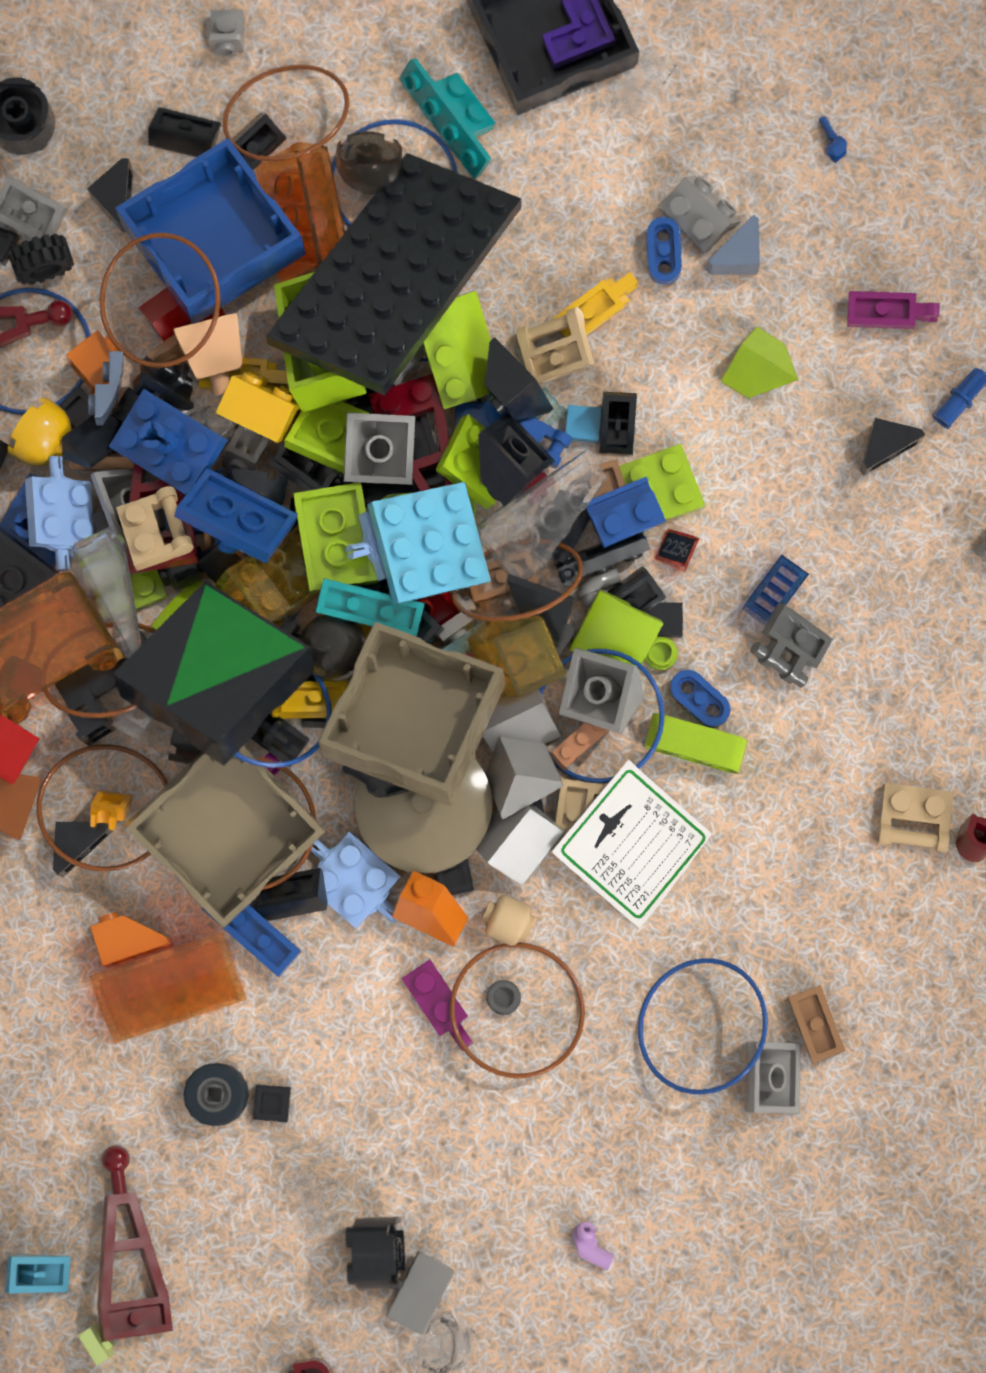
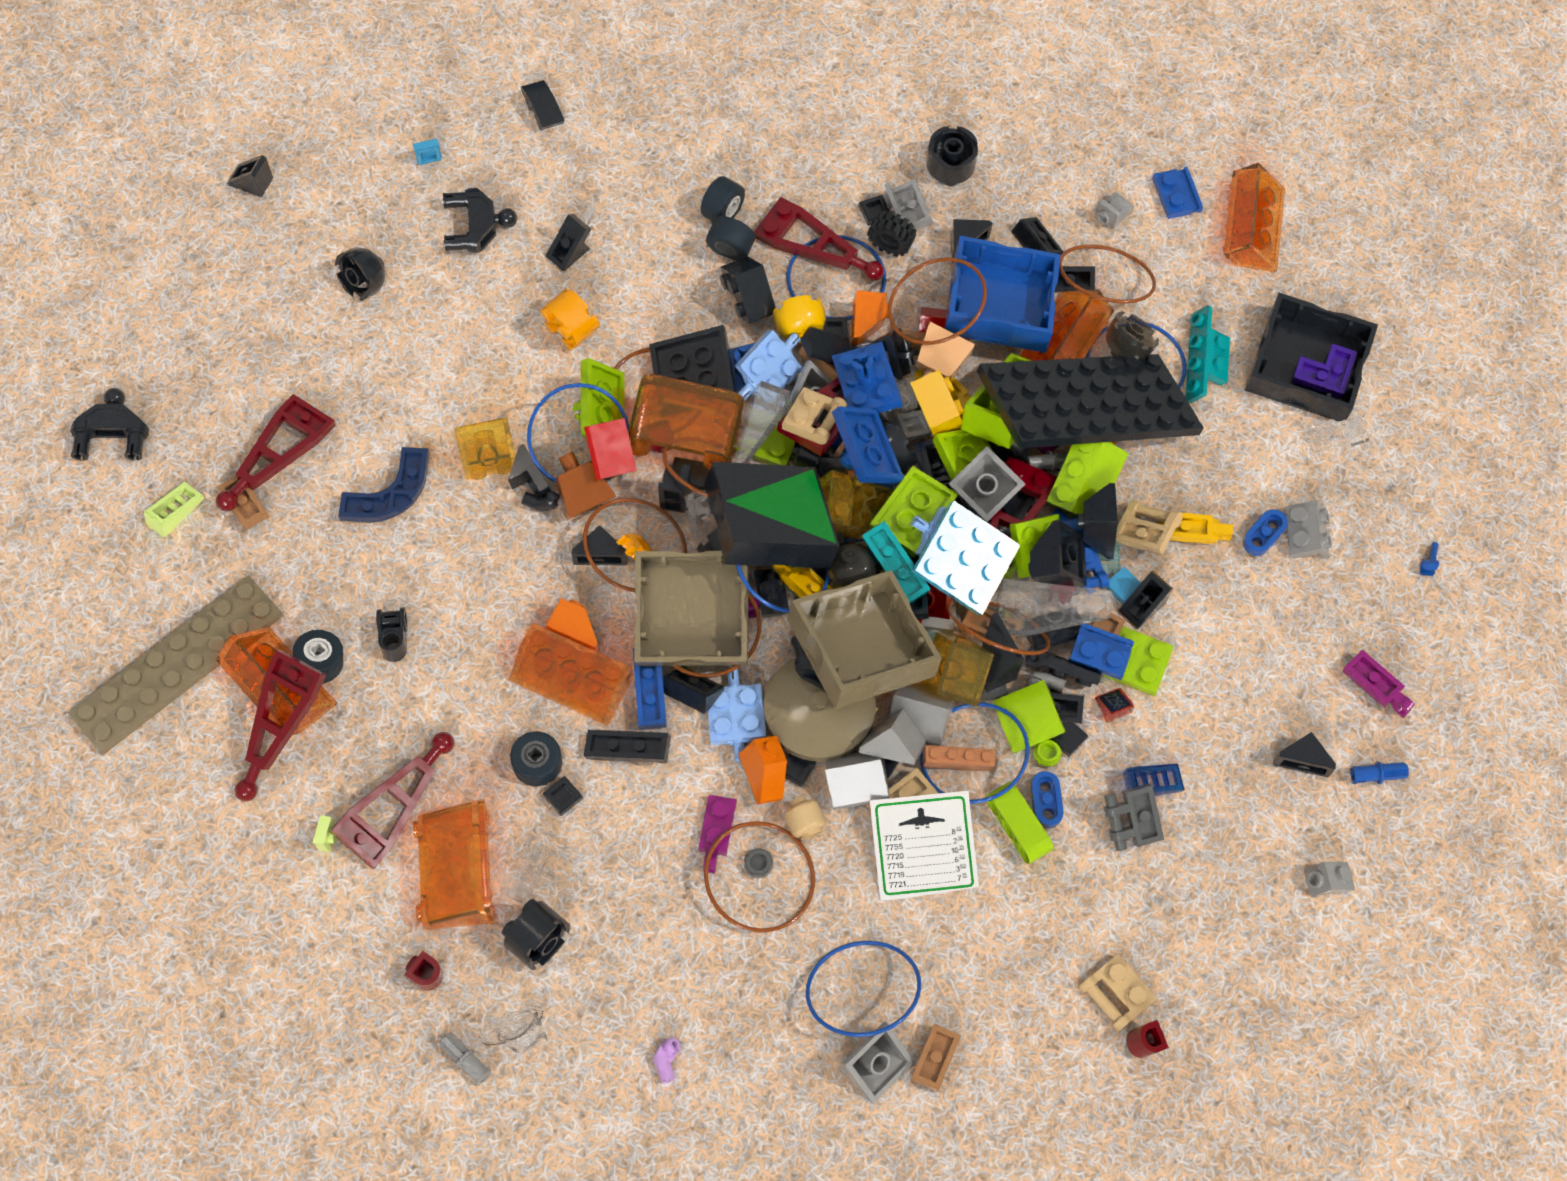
camera: 35 degrees right, 15 degrees down
(37, 1273) = (333, 761): medium azure slope -> none
(106, 394) = (859, 327): sand blue slope -> none
(242, 1261) = (454, 866): none -> clear orange windscreen
(286, 1004) = (627, 746): none -> black hinge
(420, 1293) = (537, 985): light grey slope -> none
(601, 691) = (990, 735): light grey slope -> none
(739, 253) = (1310, 571): sand blue slope -> none
(759, 365) = (1264, 643): lime slope -> none

